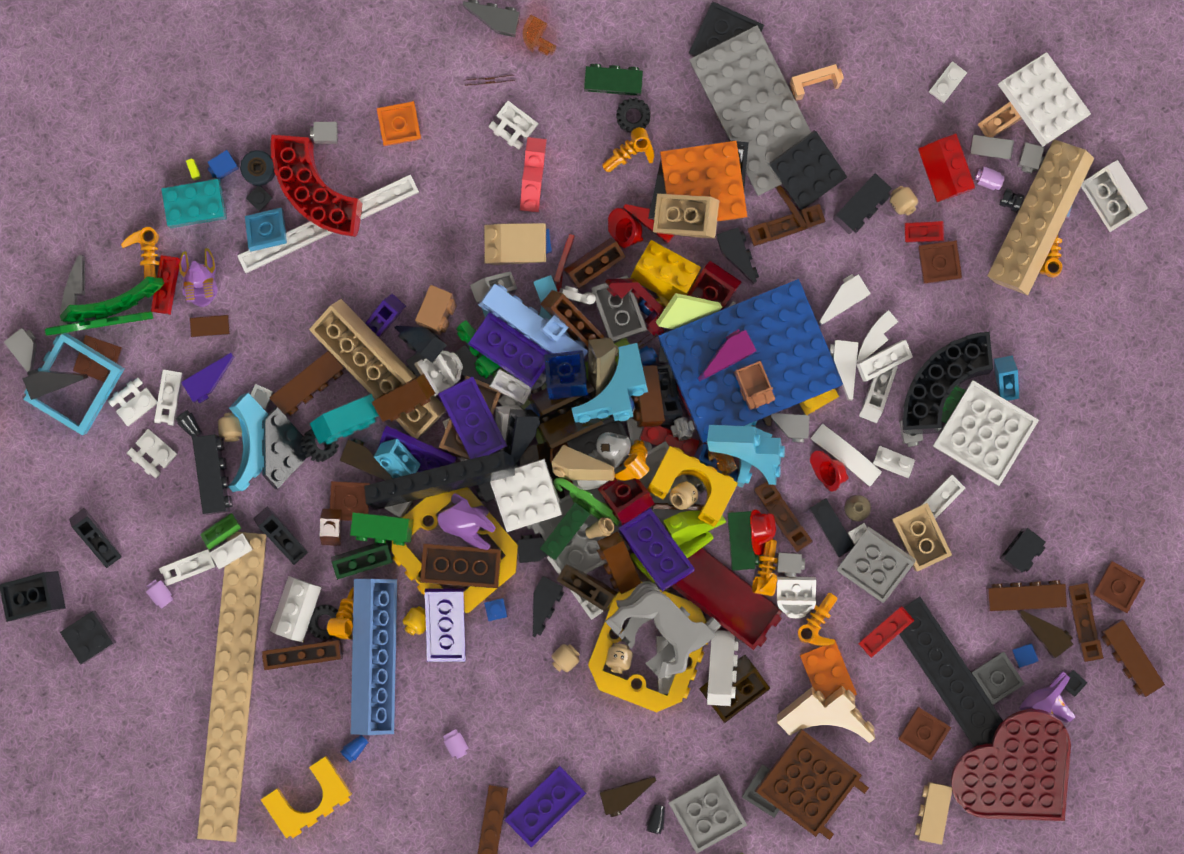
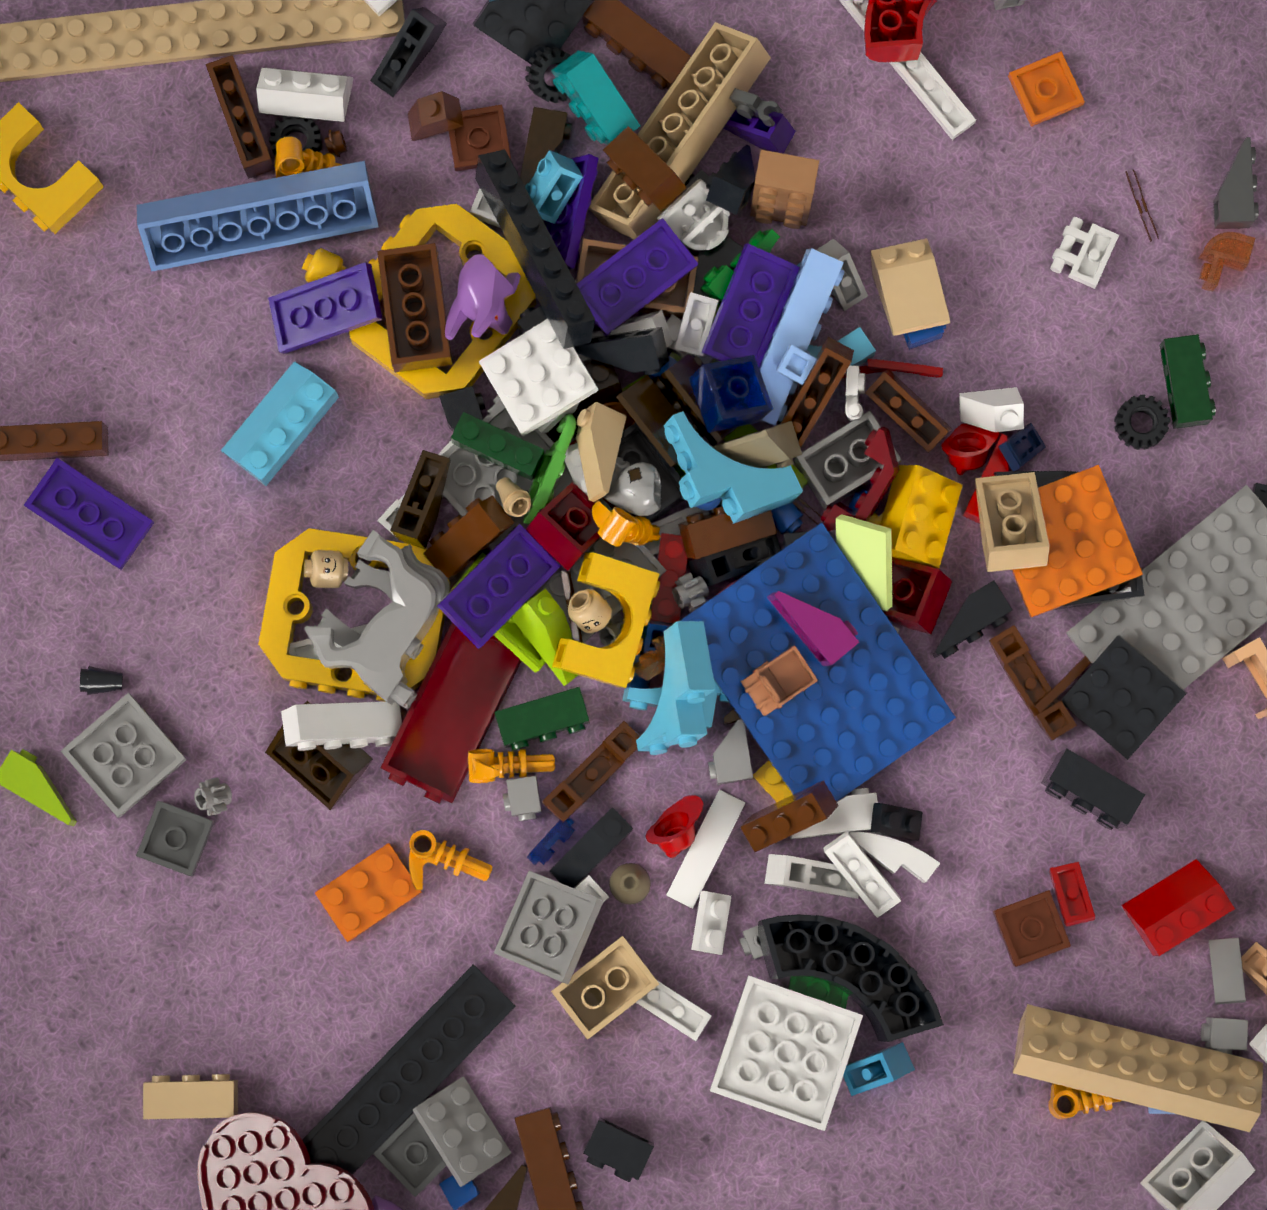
camera: 80 degrees right, 5 degrees down
(331, 596) = (335, 142): none -> reddish brown plate
(354, 748) = (119, 221): blue cone -> none
(361, 560) = (396, 169): dark green brick -> none
(373, 318) = (751, 105): none -> dark grey plate
(381, 528) = (447, 185): green brick -> none
(455, 744) = (155, 364): lavender brick -> none
(496, 609) = (363, 378): blue brick -> none
(511, 670) = (280, 423): none -> medium azure slope
(533, 174) = (1013, 292): coral arch -> none
(543, 599) = (391, 445): black slope -> none
(565, 658) = (313, 495): tan head -> none
(605, 208) = (993, 409): none -> white slope
(620, 797) = (121, 618): dark brown slope -> none
(631, 147) = (1093, 428): light orange piece -> none
(634, 196) = (1022, 446): none -> dark blue plate
(747, 761) = (213, 796): none -> light grey gear
(762, 530) = (563, 743): red piece -> none
(796, 595) = (477, 817): white slope -> none
(809, 783) = (196, 897): reddish brown plate -> none
(815, 710) = (314, 912): arch -> none
(826, 557) = (543, 850): none -> clear blue plate
(839, 398) = (789, 816): none -> reddish brown brick
(848, 295) = (947, 798): white slope -> none
(856, 331) = (896, 821): none -> black plate
(886, 631) = (450, 965): red plate -> none
(903, 200) = (1112, 852): tan head -> none
(924, 733) = (309, 1058): copper plate -> none
(989, 178) = (1177, 977): lavender brick -> none
(990, 646) = (461, 1131): none -> light grey plate
(1011, 200) = (1152, 1018): black wheel -> none

